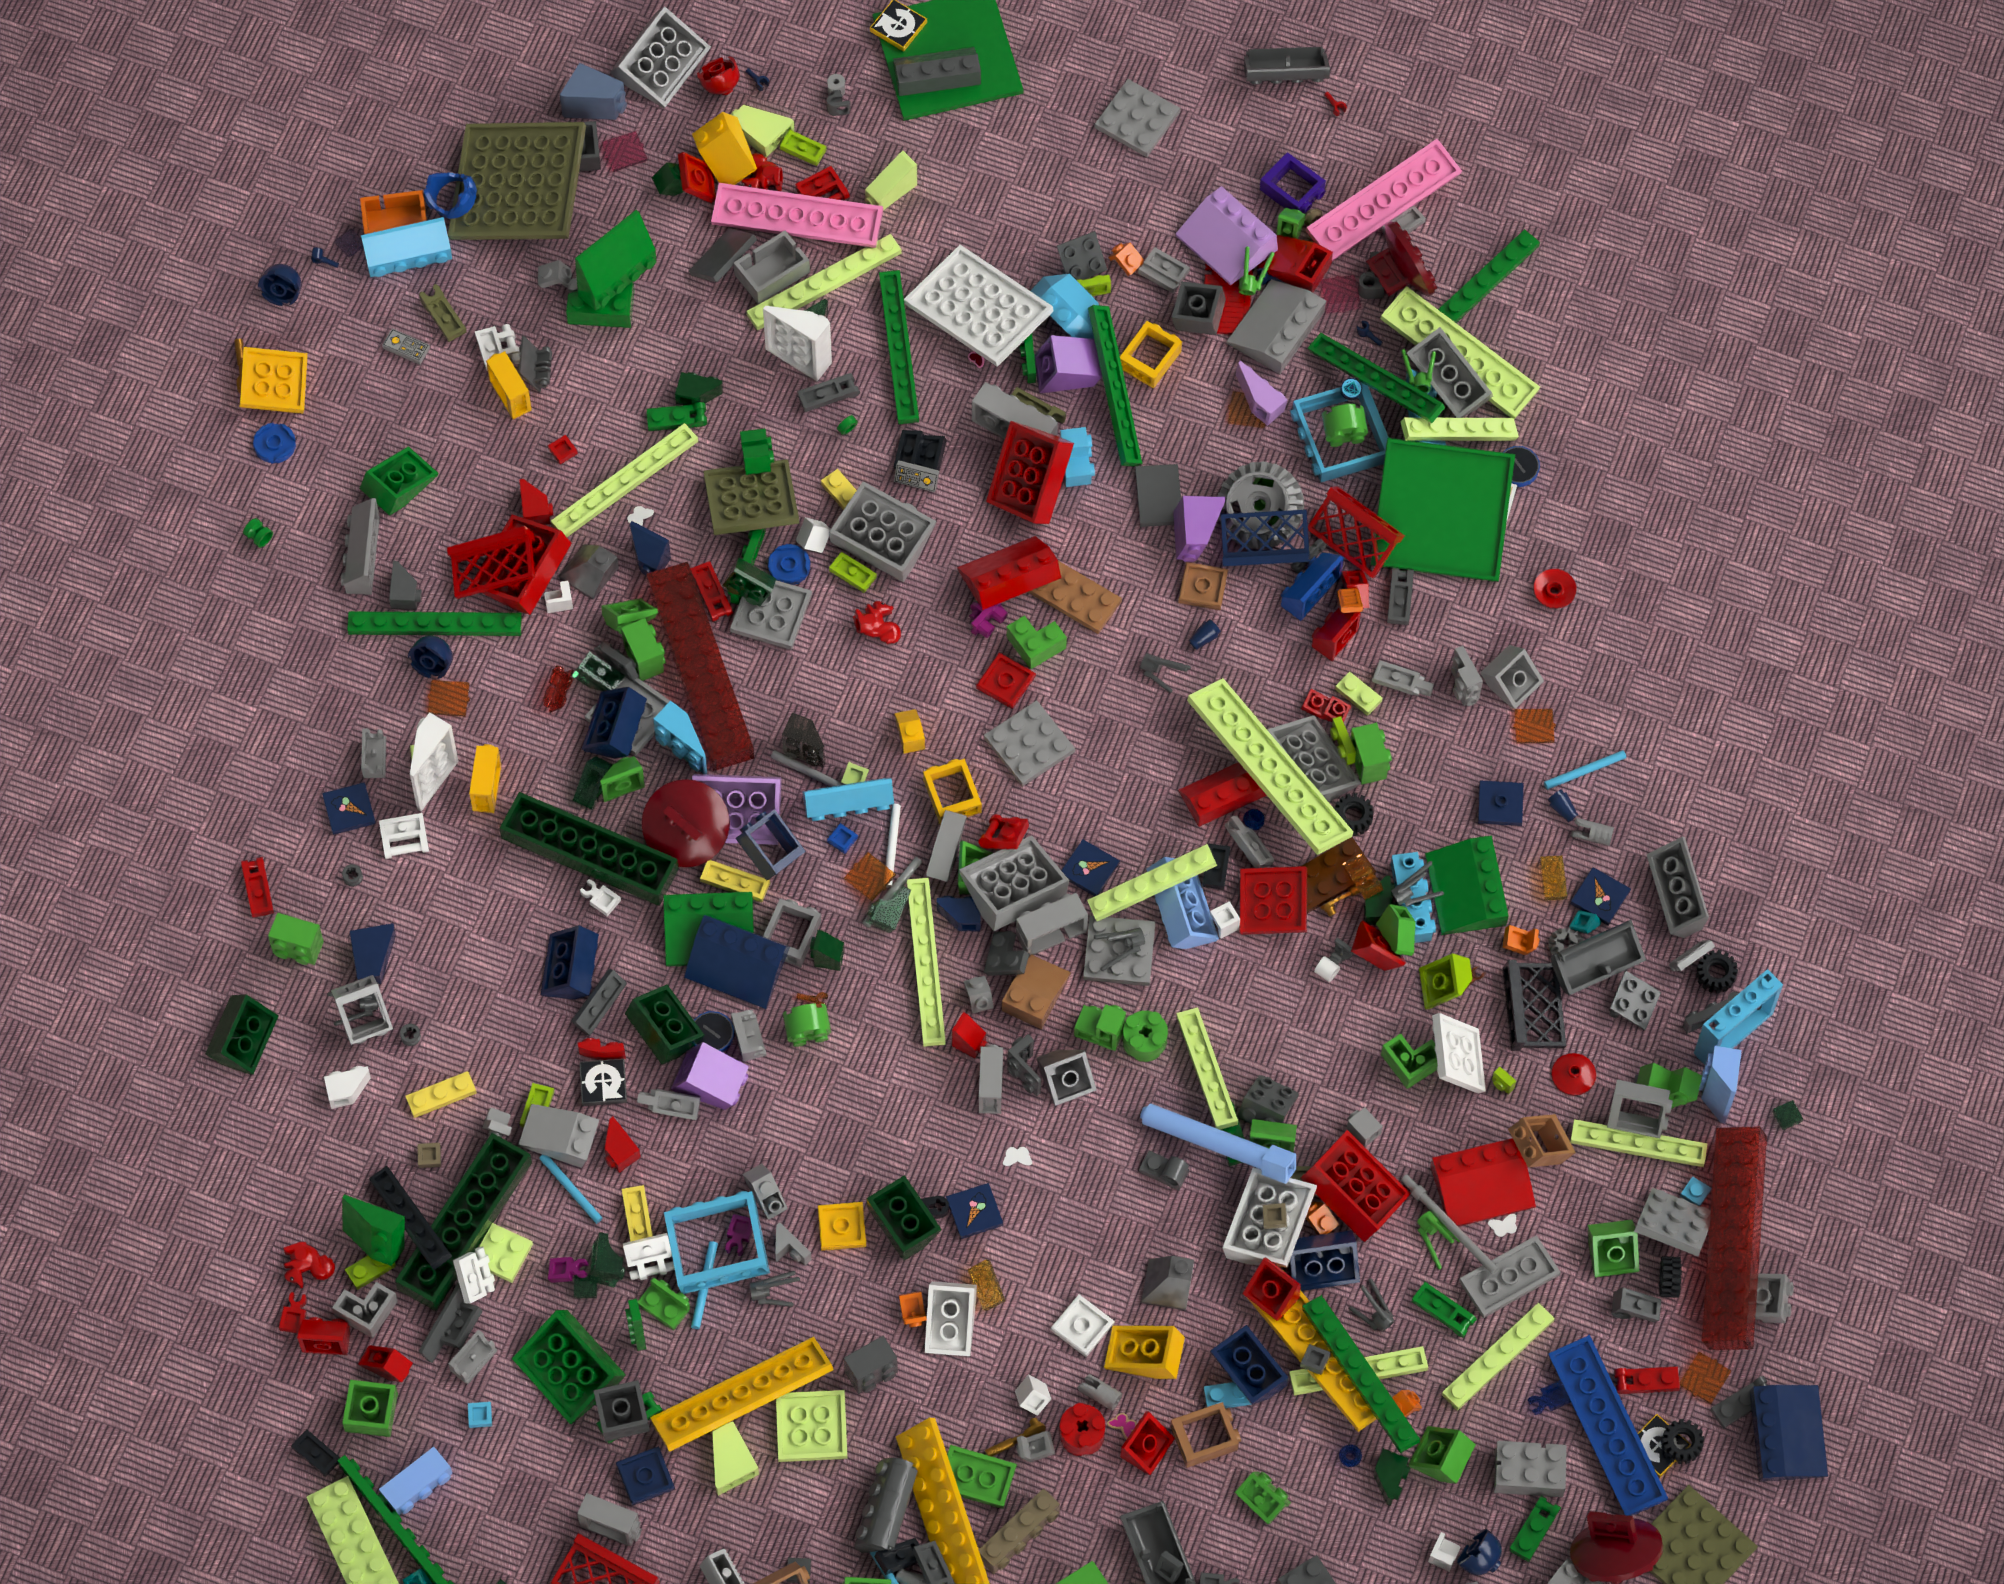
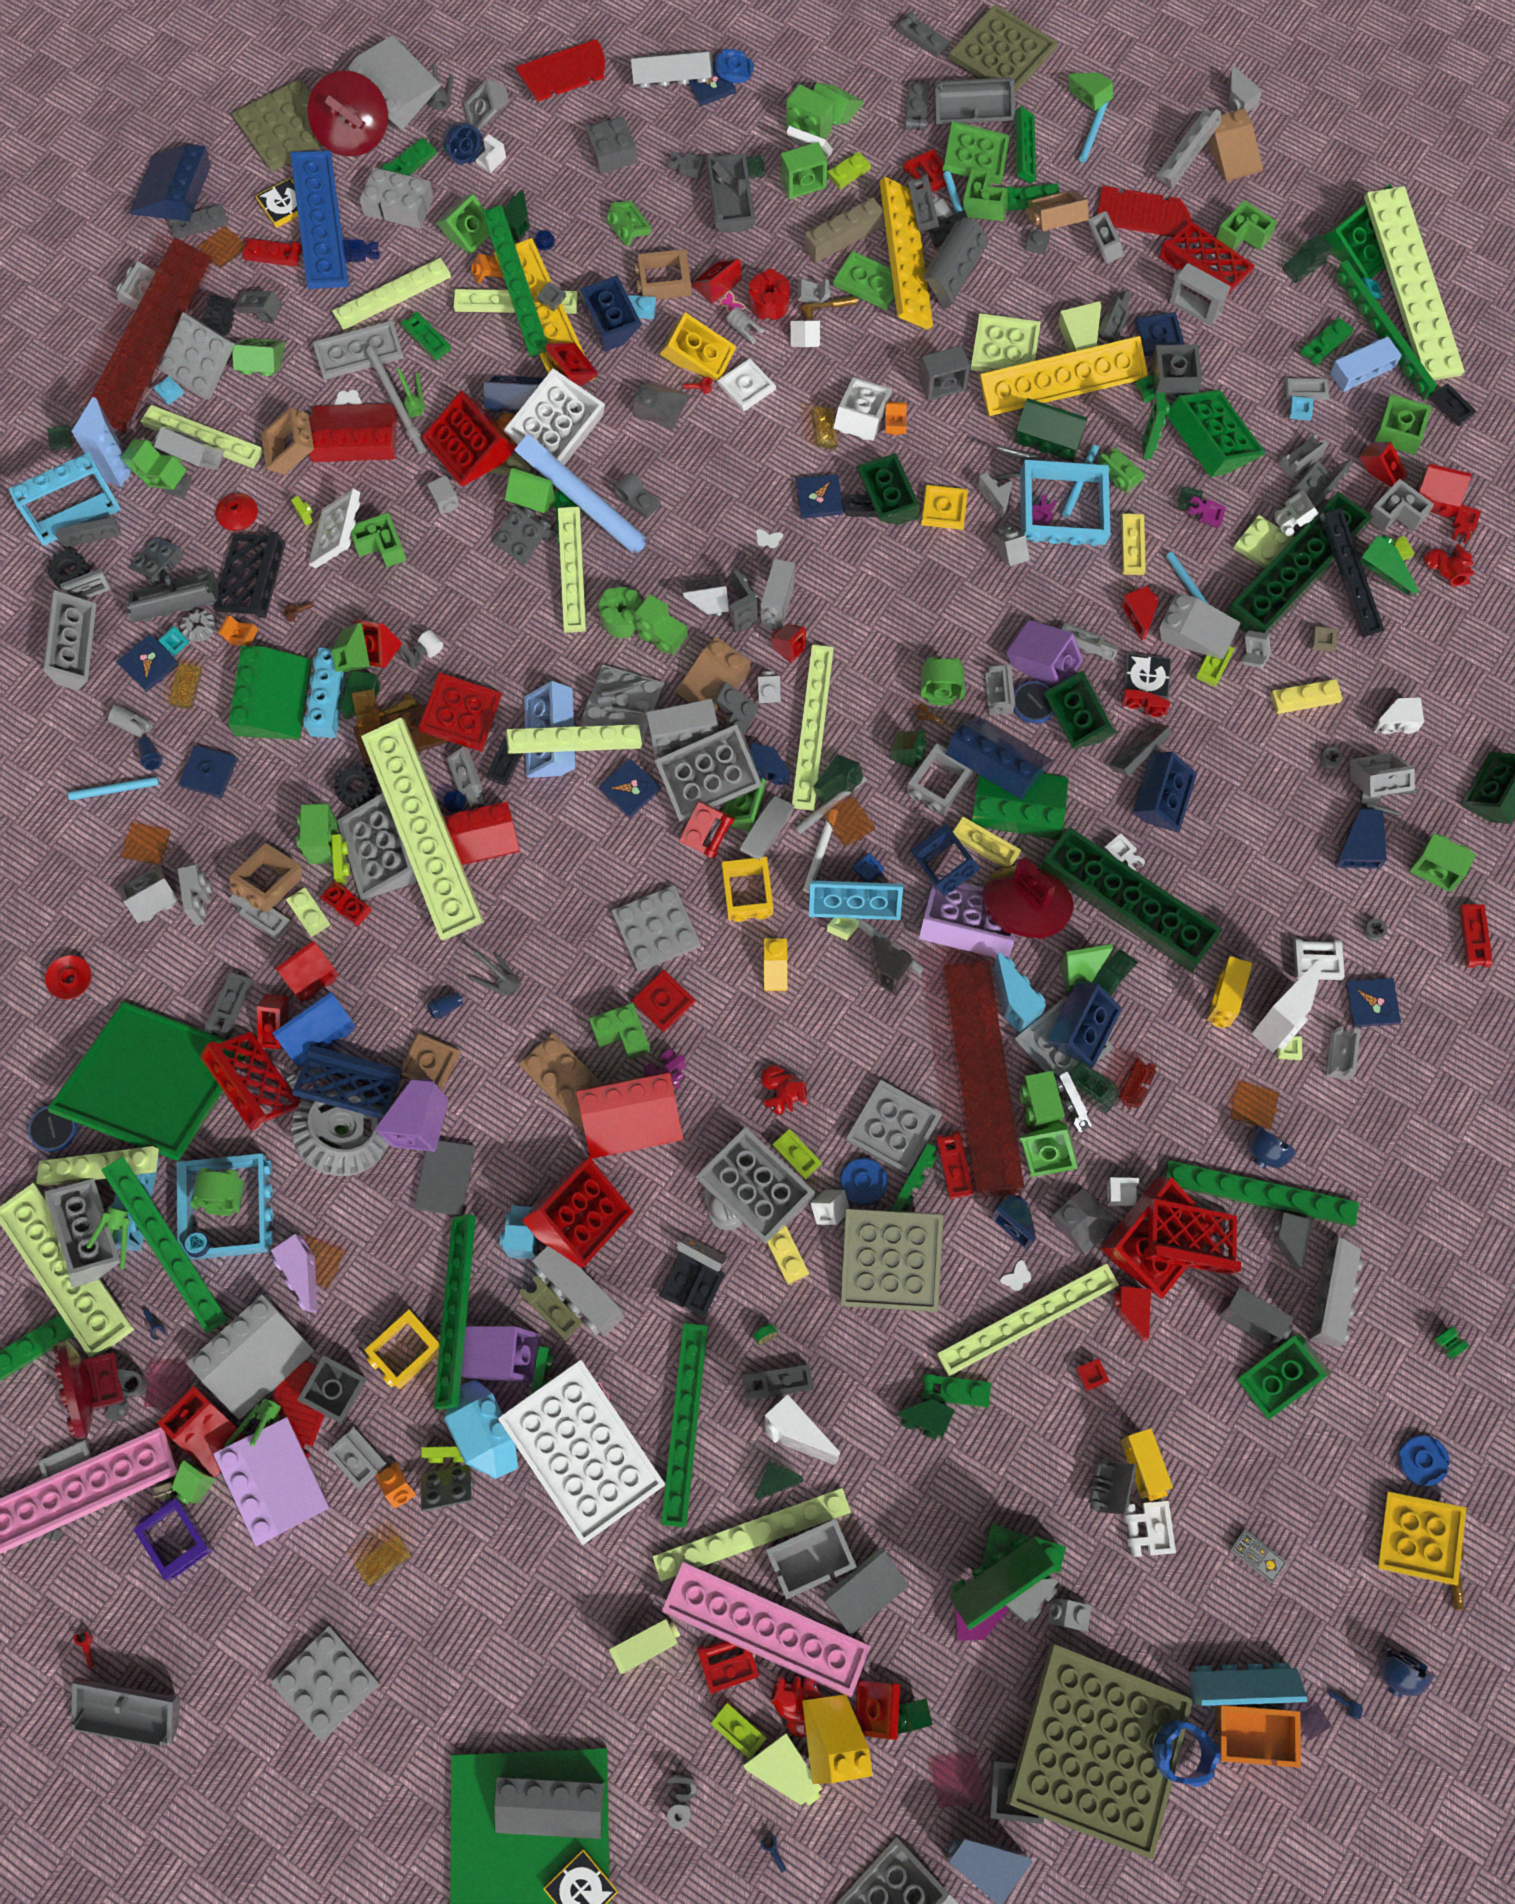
camera: 165 degrees left, 5 degrees up
(430, 513) = (1256, 1317): none -> dark grey window
(443, 314) = (1210, 1589): olive plate -> none
(459, 1507) = (1327, 341): none -> green plate
(476, 1444) = (1307, 387): none -> light grey tile
(605, 1264) = (1171, 503): clear green arch -> none
(646, 1251) = (1131, 505): white plate -> none
(696, 1486) = (1115, 317): none -> dark grey hinge
(719, 76) = (822, 1860): red cylinder -> none
(745, 1323) = (1050, 430): none -> dark green slope
(749, 582) = (913, 1145): dark green slope -> none
(756, 451) = (875, 1317): green brick -> none
(1118, 204) = (383, 1560): none -> clear yellow plate
(1132, 1313) = (703, 385): none -> red hand
(1225, 919) = (512, 702): white panel -> none
(1275, 1216) = (550, 407): dark tan plate -> none
(1349, 600) = (280, 996): orange slope -> none
(1382, 1317) = (482, 338): dark grey plant -> none
(1397, 726) = (276, 861): none -> medium nougat window
(1403, 892) = (333, 680): dark grey plant -> none
(1444, 979) = (322, 607): lime slope -> none
(1682, 1428) = (258, 182): black tyre -> none

